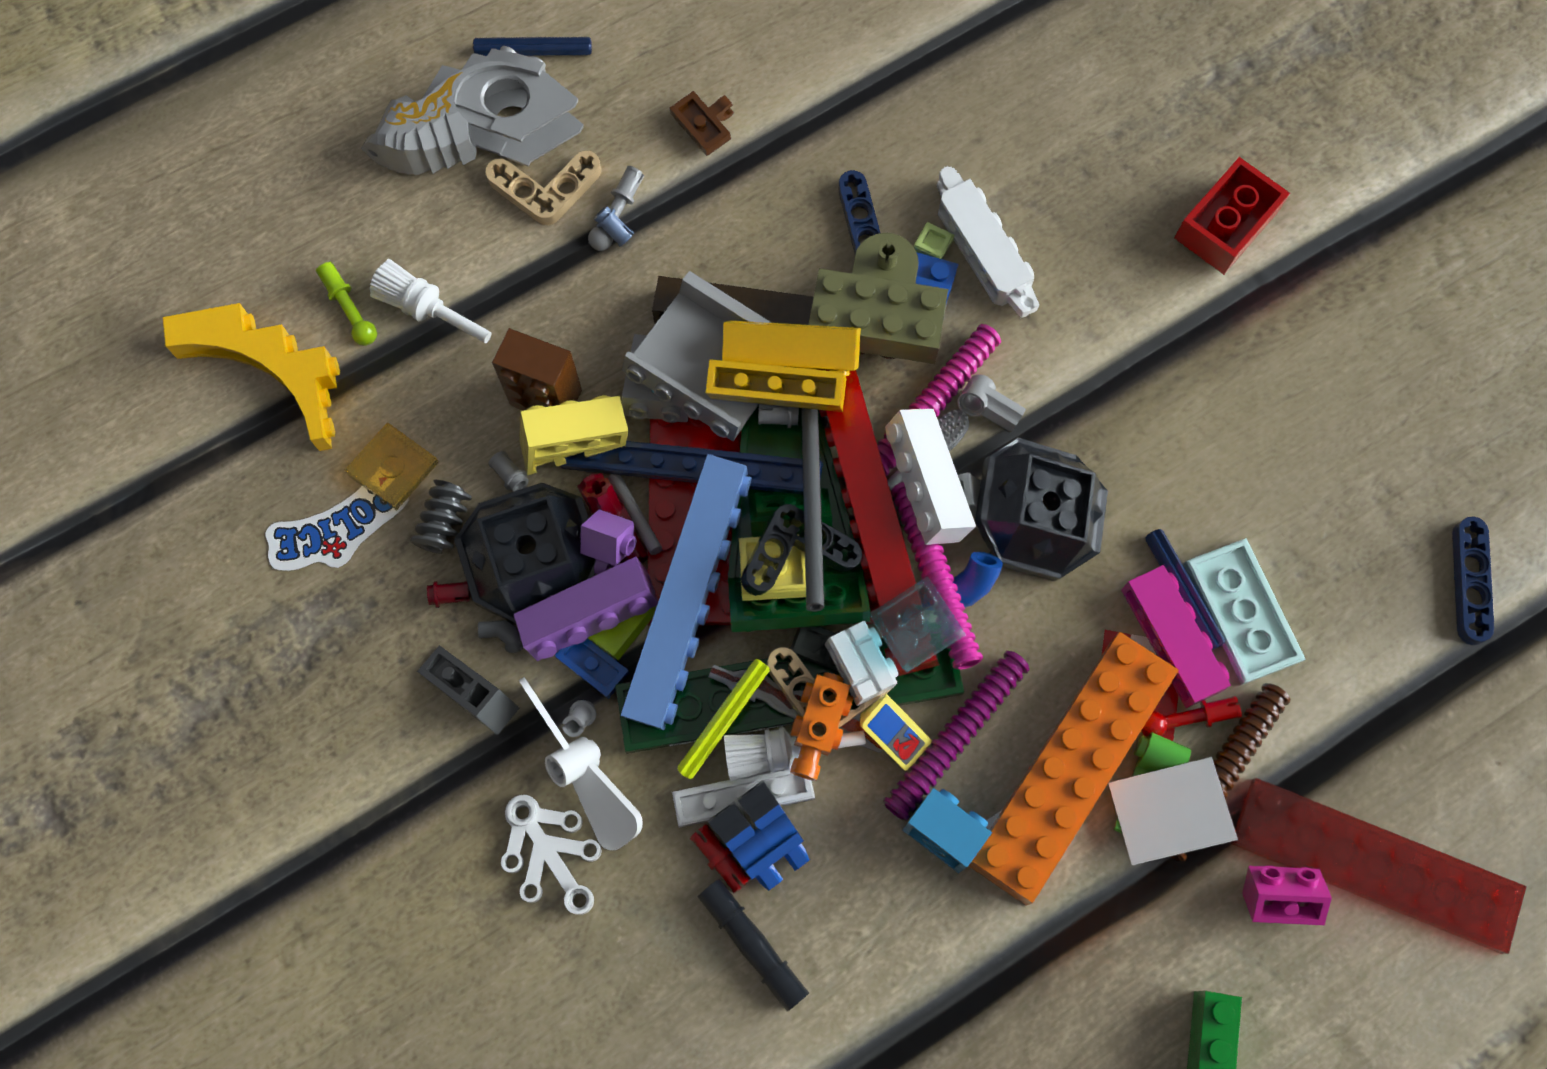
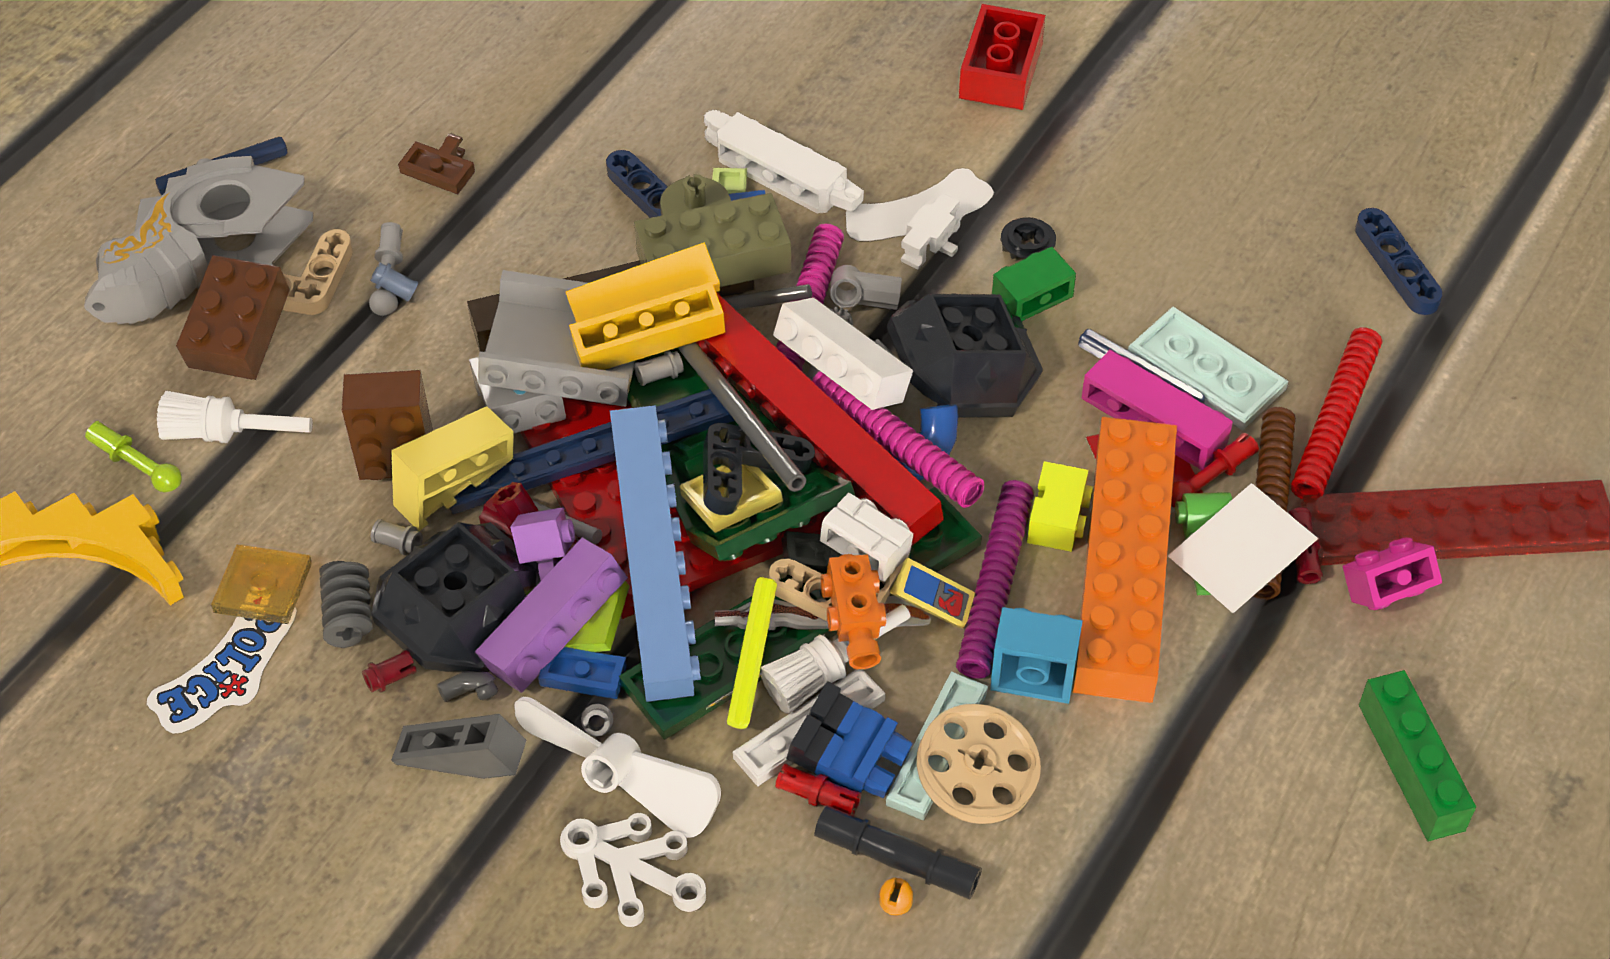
camera: 25 degrees left, 20 degrees down
(471, 207) = (233, 317): none -> reddish brown brick
(740, 985) = (904, 900): none -> light orange hinge
(833, 862) = (907, 791): none -> light aqua tile
(872, 897) = (995, 769): none -> tan wedge
(900, 377) = (770, 297): none -> dark grey bar
(917, 624) = (907, 473): clear light blue slope -> none
(1051, 684) = (1058, 507): none -> neon yellow brick
(1077, 369) = (931, 226): none -> white piece
(1084, 343) = (891, 218): none -> white sticker
(1136, 463) = (1035, 283): none -> green brick
(1159, 400) = (1026, 229): none -> black gear
(1237, 805) = (1308, 561): none -> dark red pin
(1330, 711) = (1336, 413): none -> red piece

